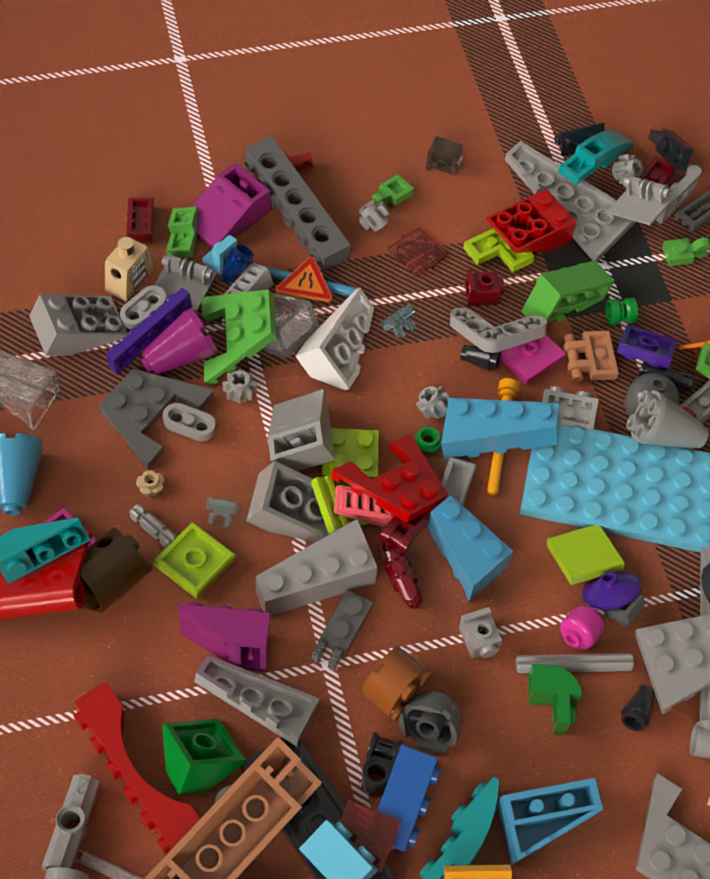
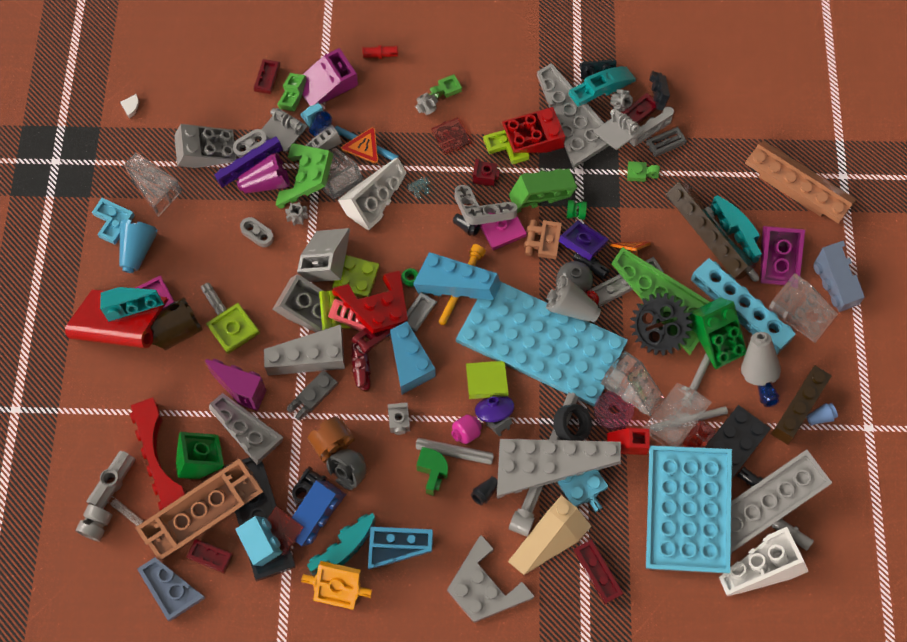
camera: 20 degrees right, 10 degrees up
(127, 268) = (246, 113): tan torso -> none
(141, 401) = (227, 213): dark grey wing -> none
(152, 489) = (220, 274): tan plate -> none
(221, 507) = (261, 296): clear light blue tile -> none
(288, 188) = (363, 44): dark grey brick -> none
(433, 402) = (420, 251): light grey gear -> none
(445, 156) = (492, 65): clear smoke brick -> none
(576, 409) = (514, 275): light grey bracket -> none

